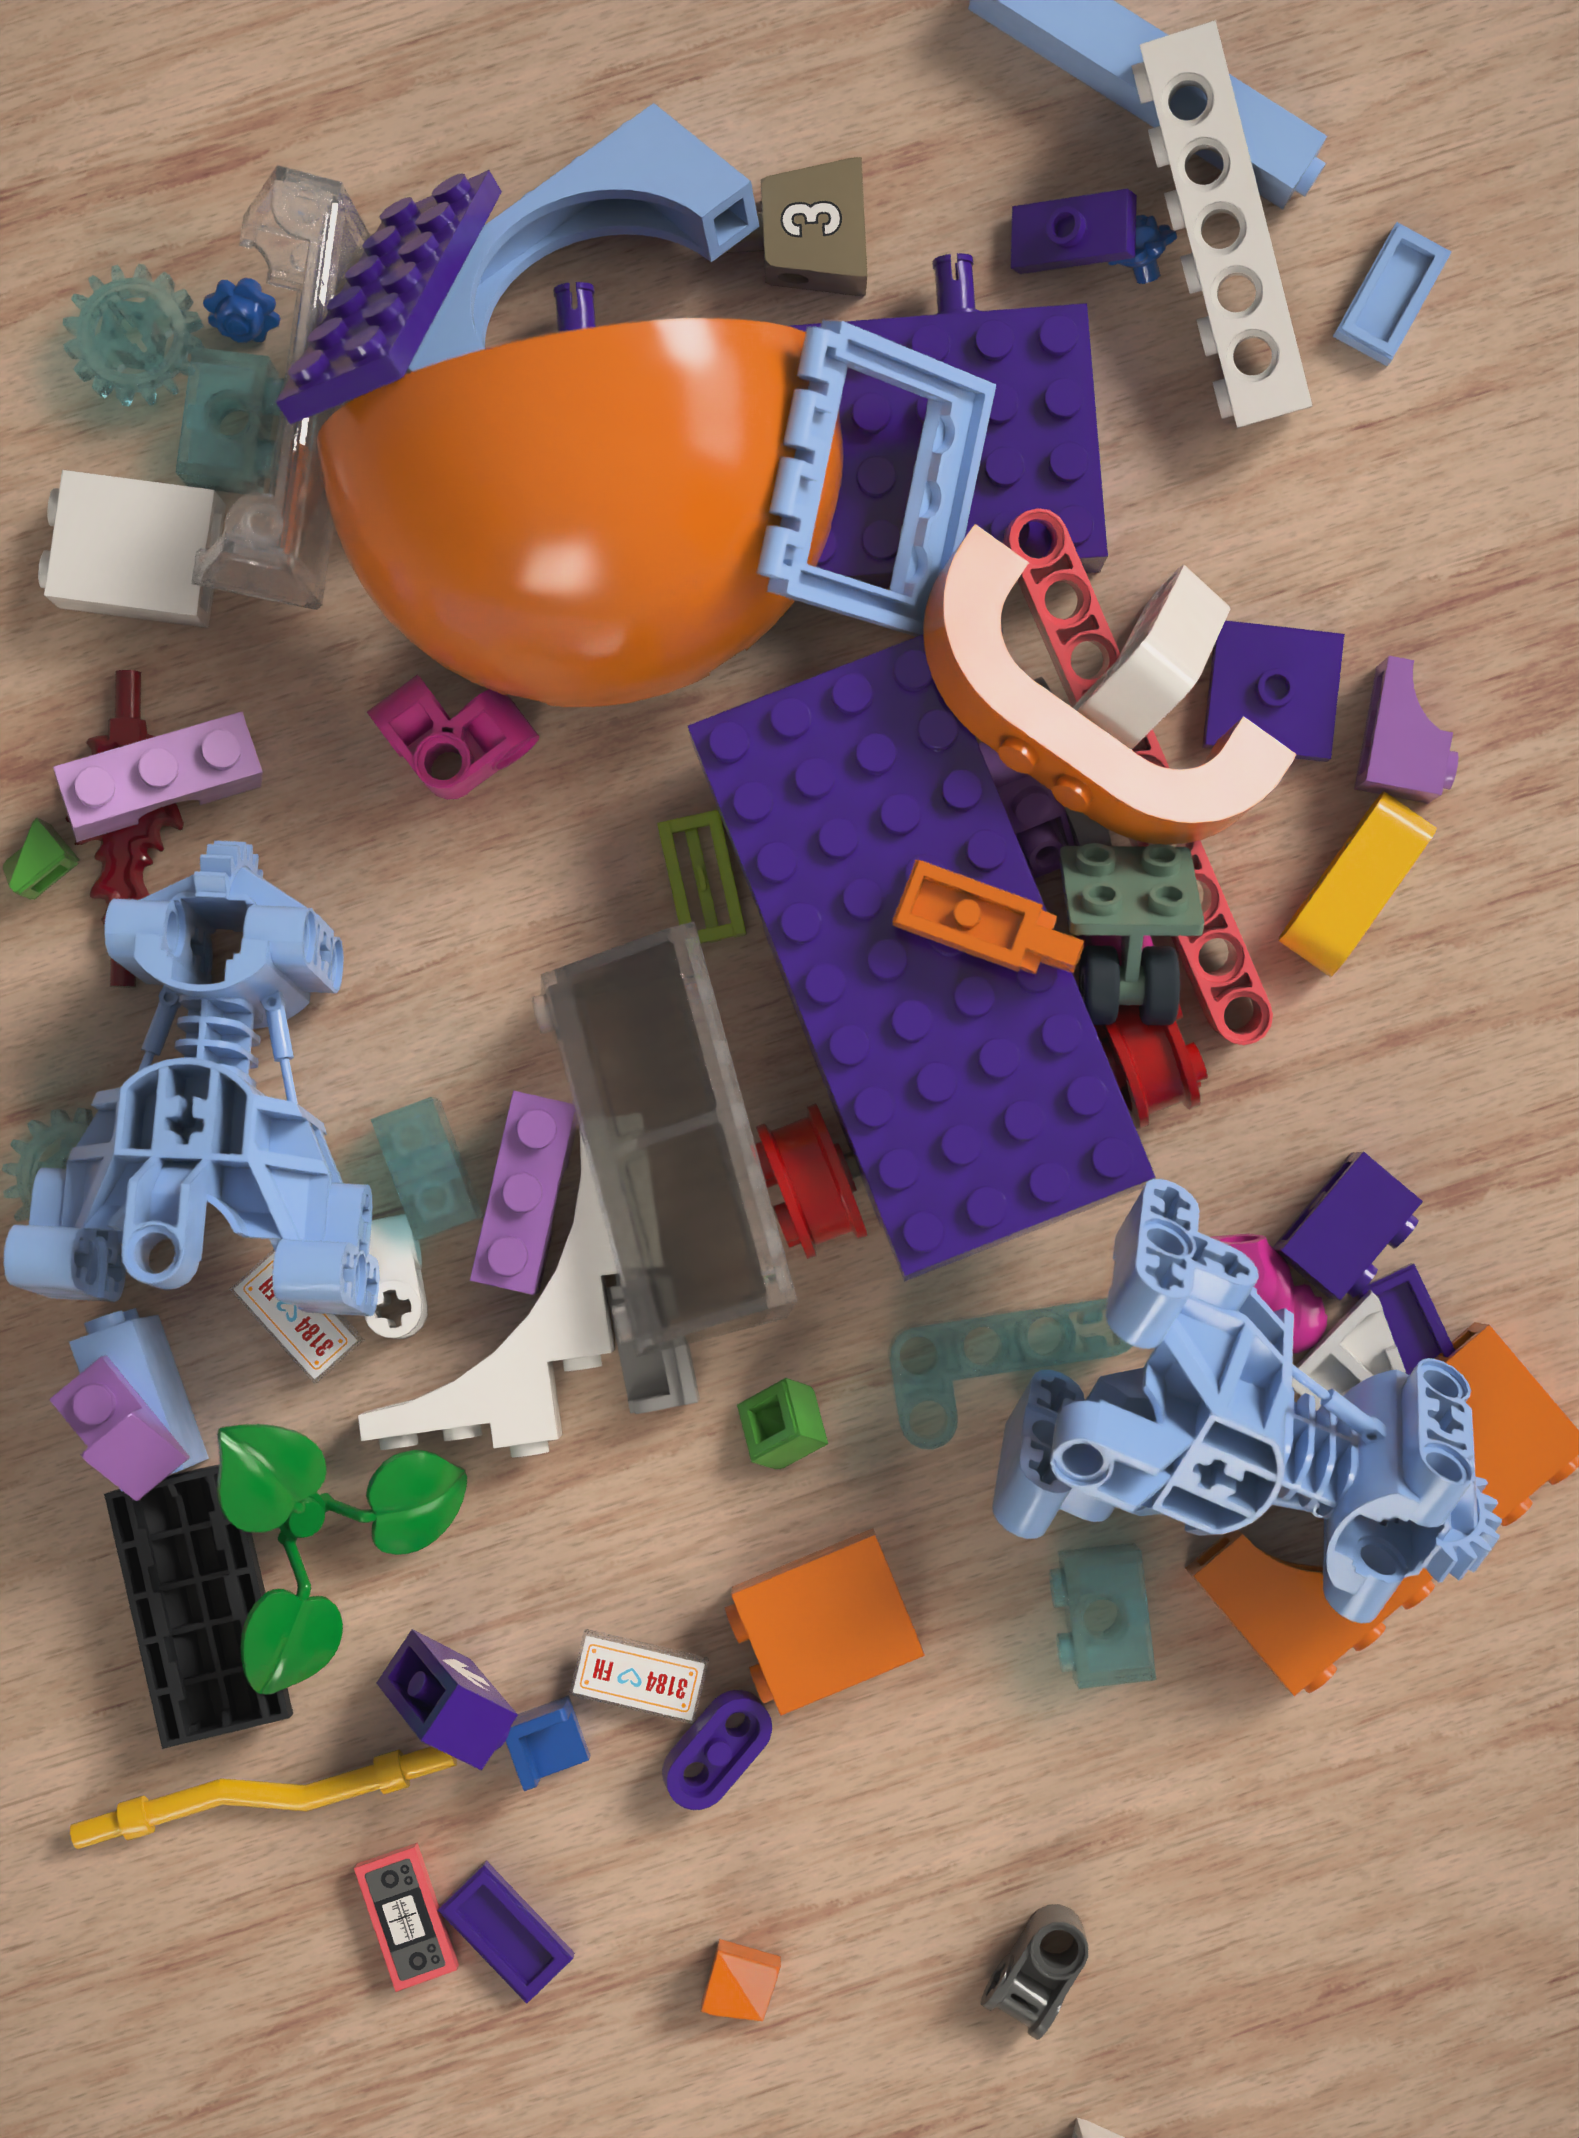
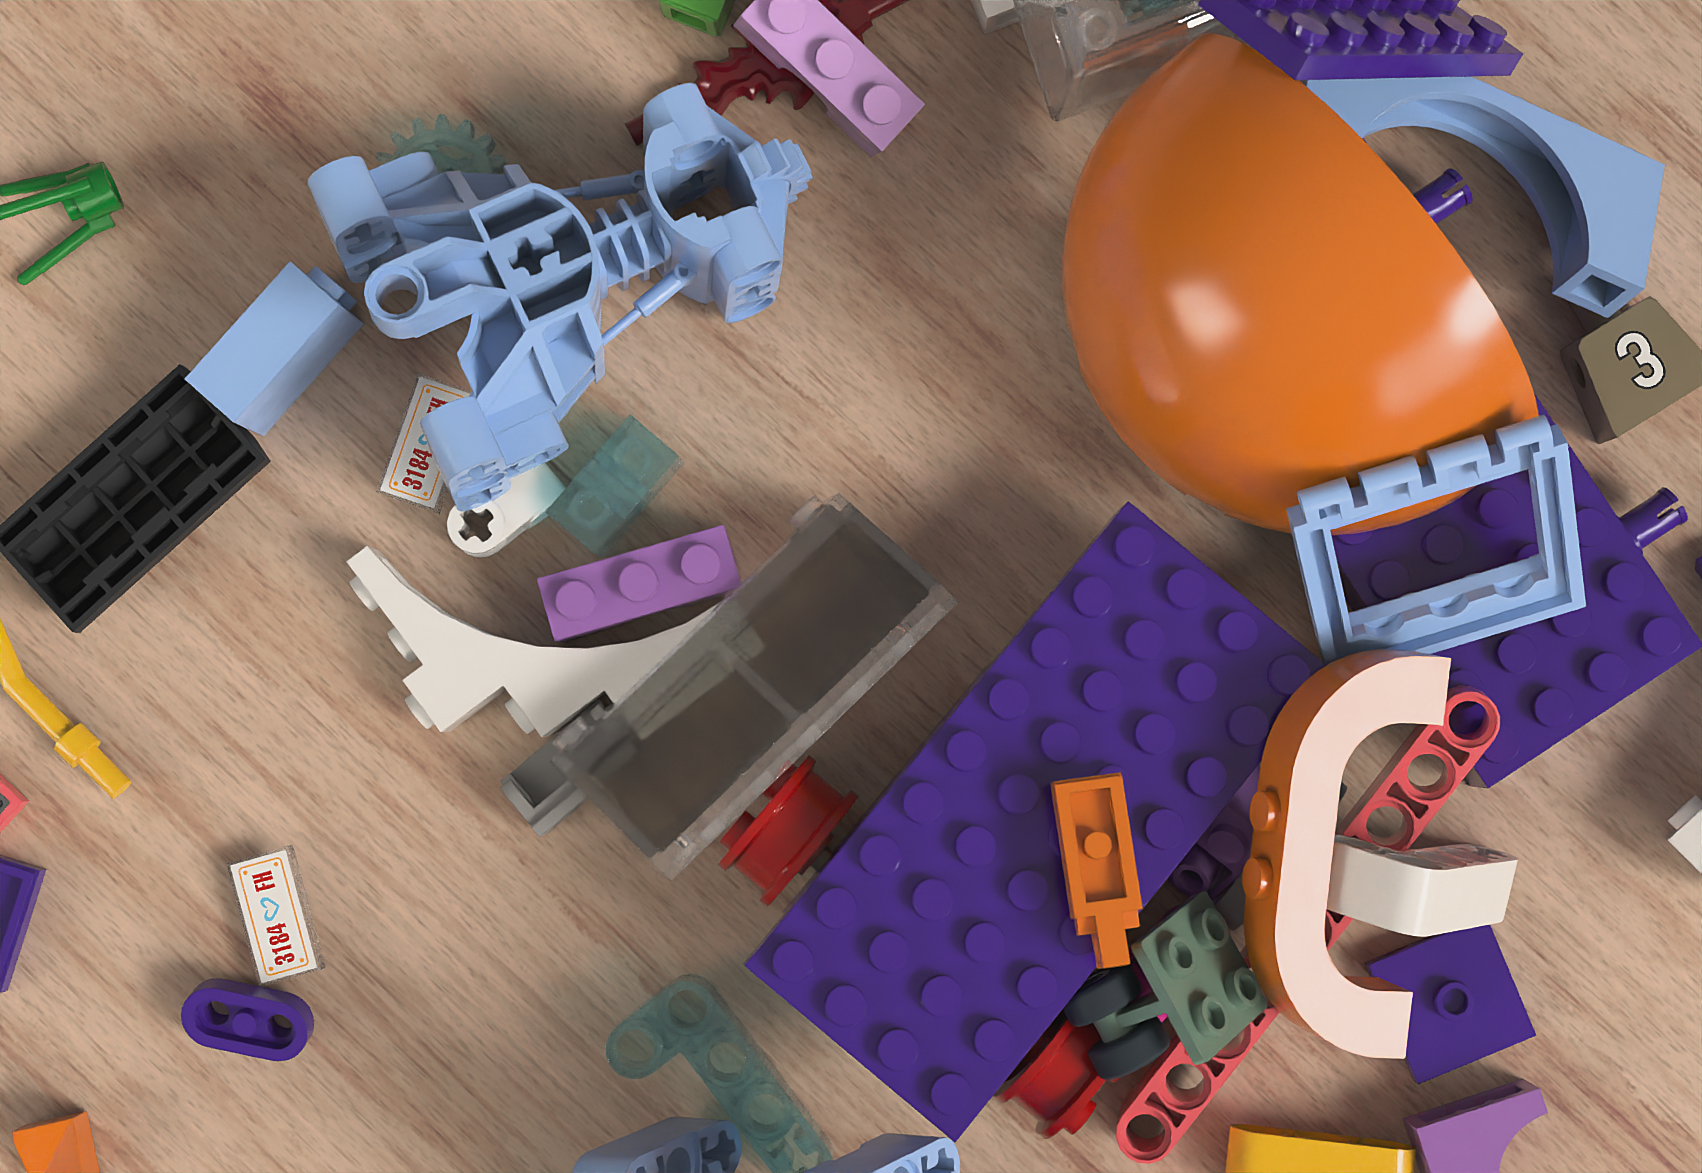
camera: 65 degrees right, 0 degrees up
(119, 1429) = (236, 348): medium lavender slope -> none
(271, 1483) = (263, 510): green plant -> none
(447, 1700) = (160, 761): dark purple brick -> none
(486, 733) = (1024, 324): dark pink piece -> none
(546, 1741) = (174, 864): blue panel -> none
(690, 825) = (1043, 549): lime tile -> none
(782, 1424) = (563, 920): bright green slope -> none
(823, 1623) = (408, 1053): orange brick -> none

